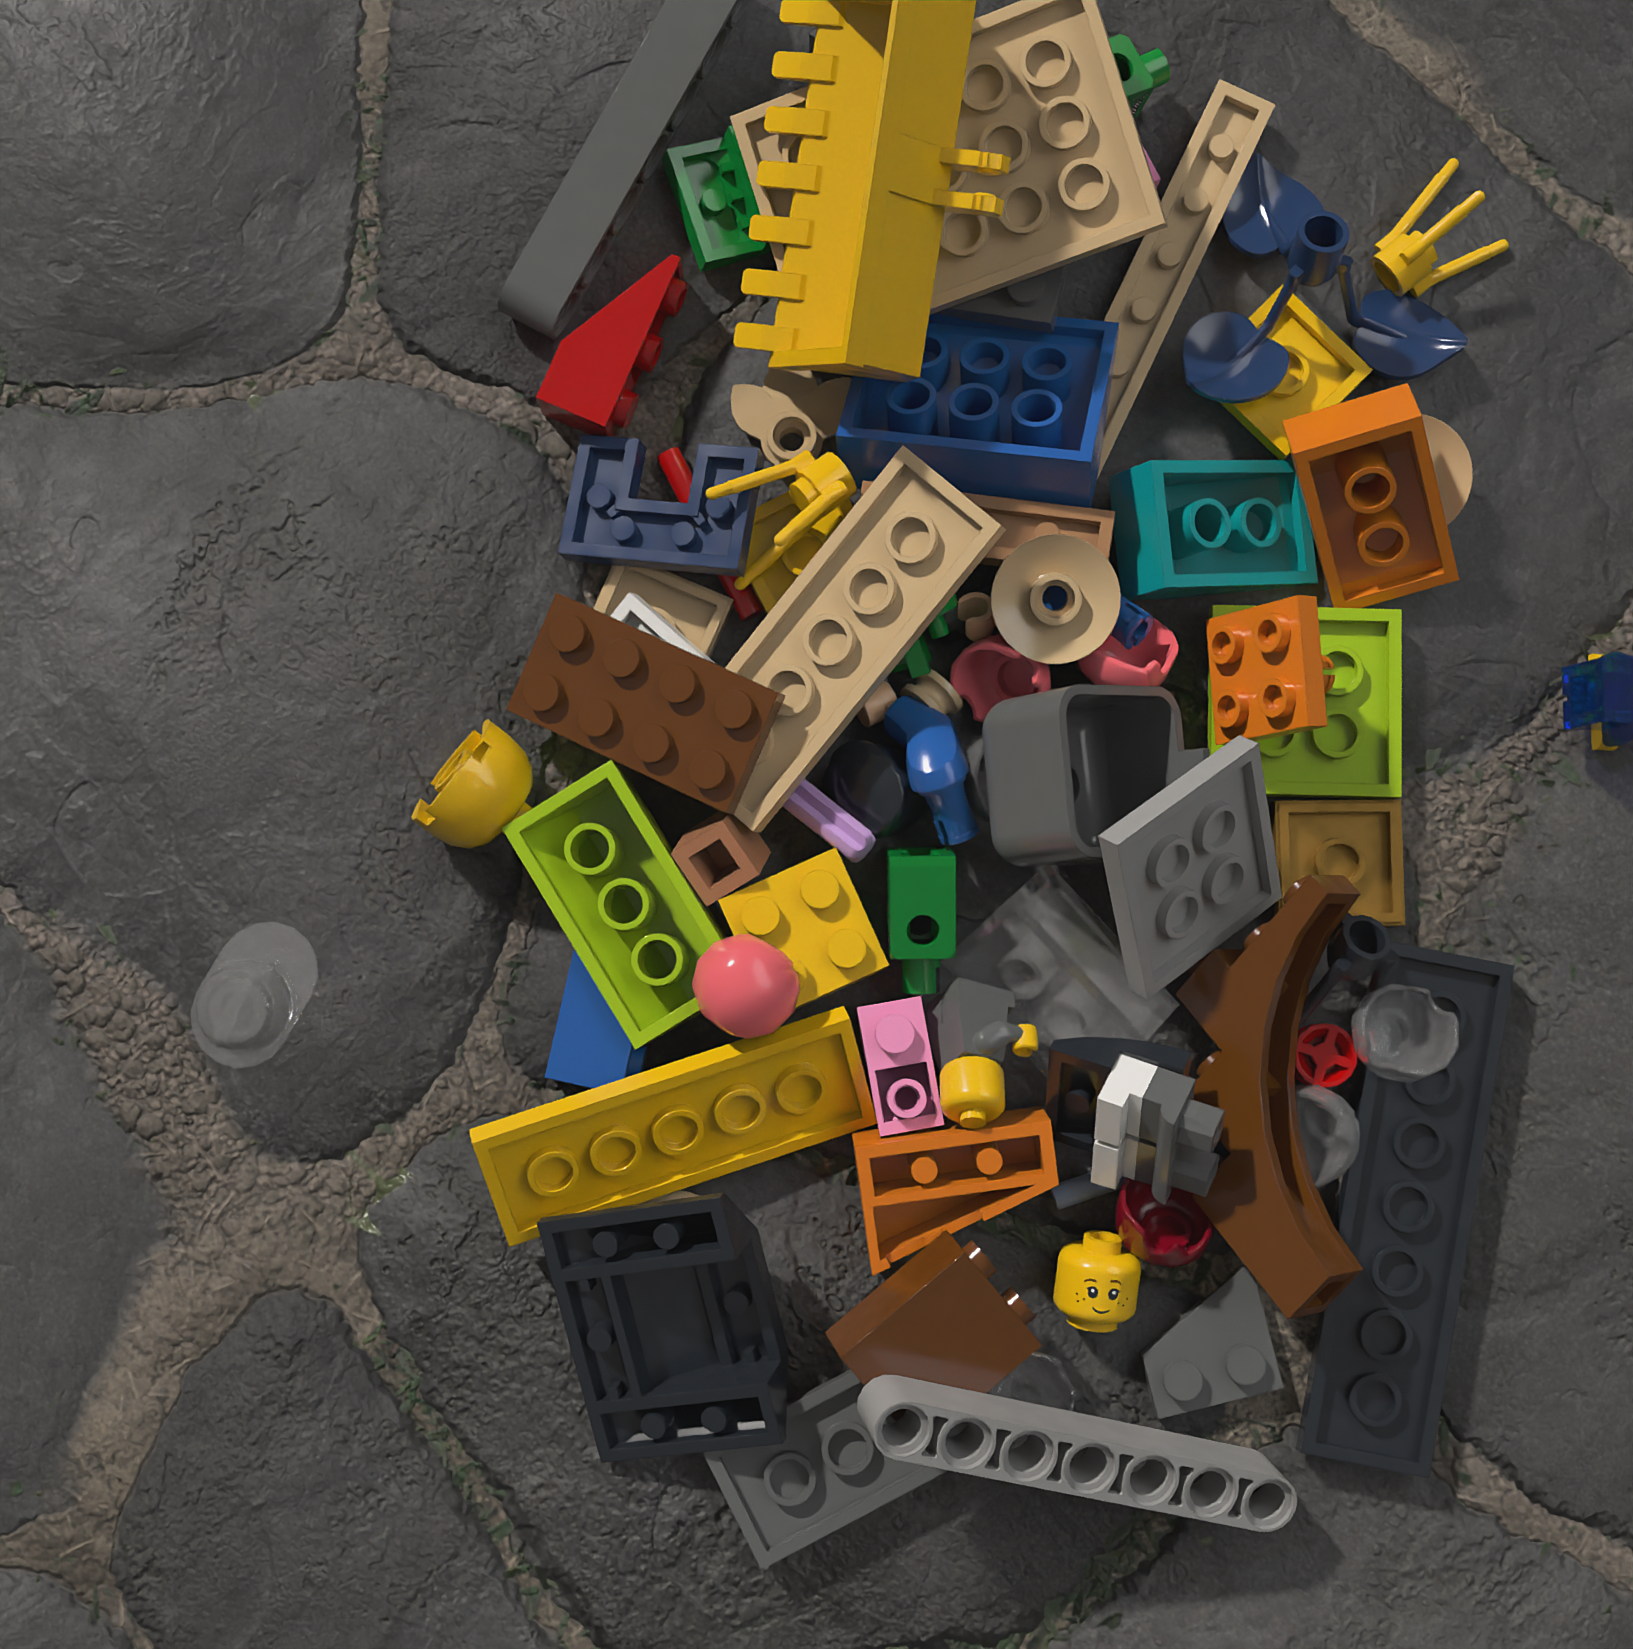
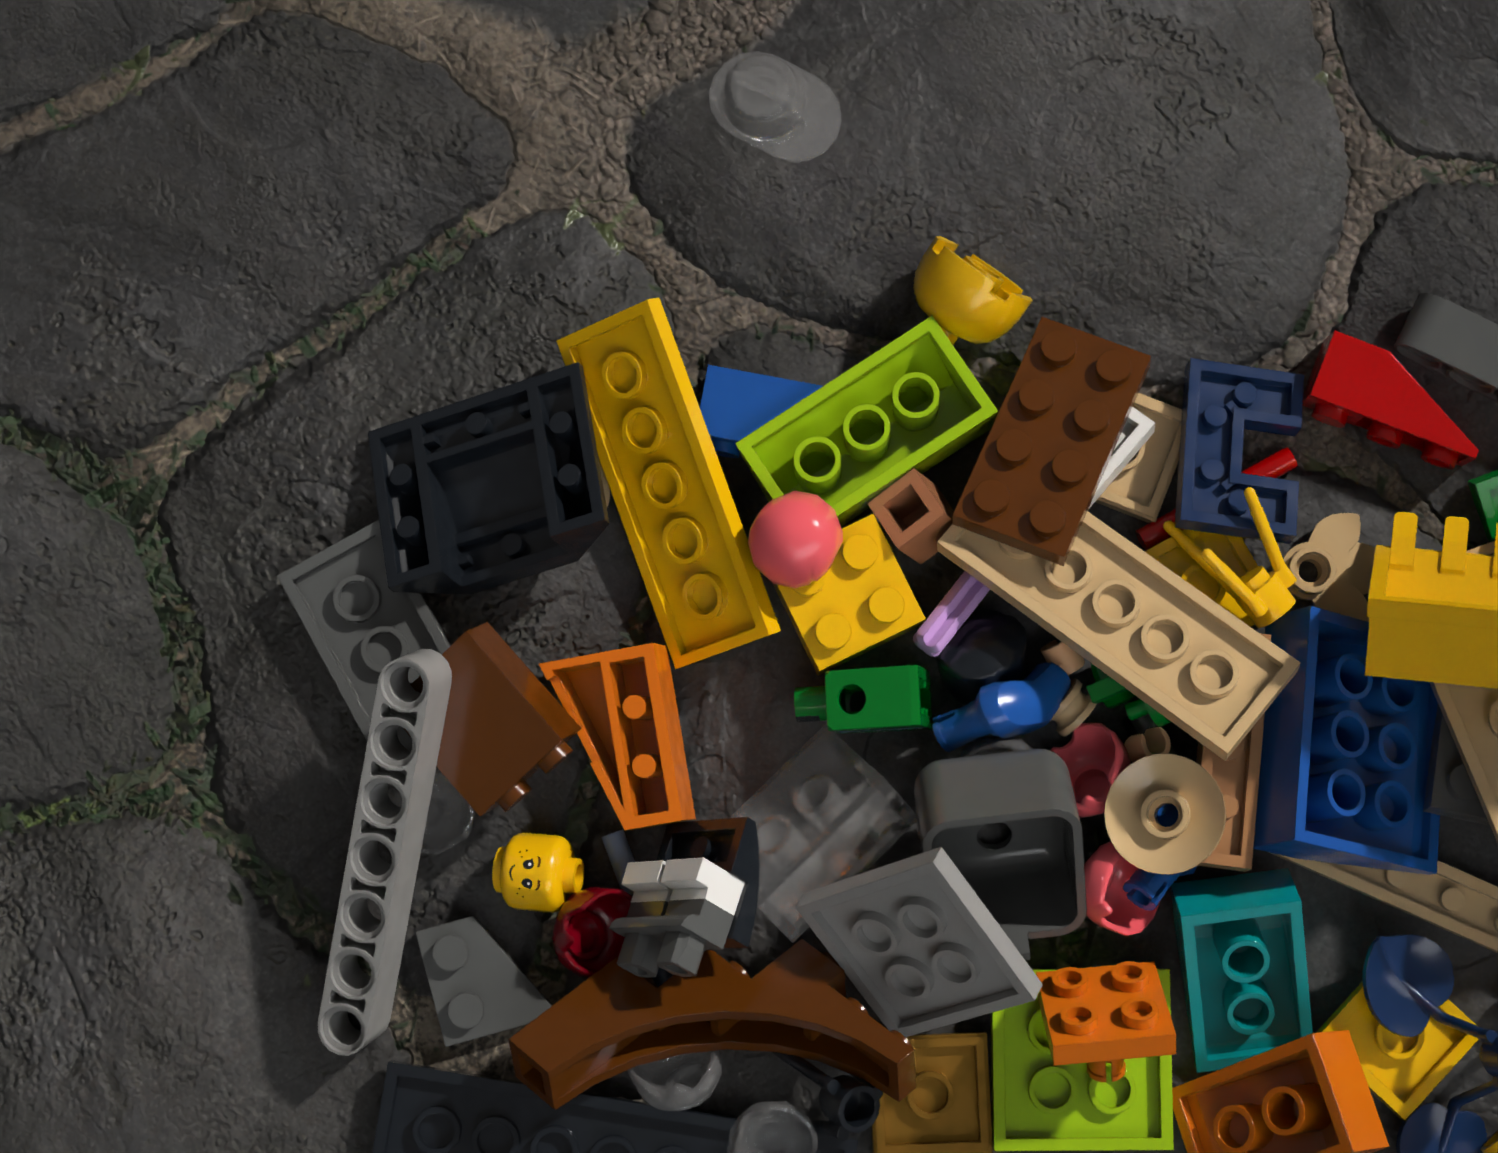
camera: 90 degrees right, 0 degrees up
(900, 1066) = (728, 685): bright pink slope -> none
(968, 1043) = (749, 746): piece -> none
(1332, 1058) = (747, 1086): red wheel -> none

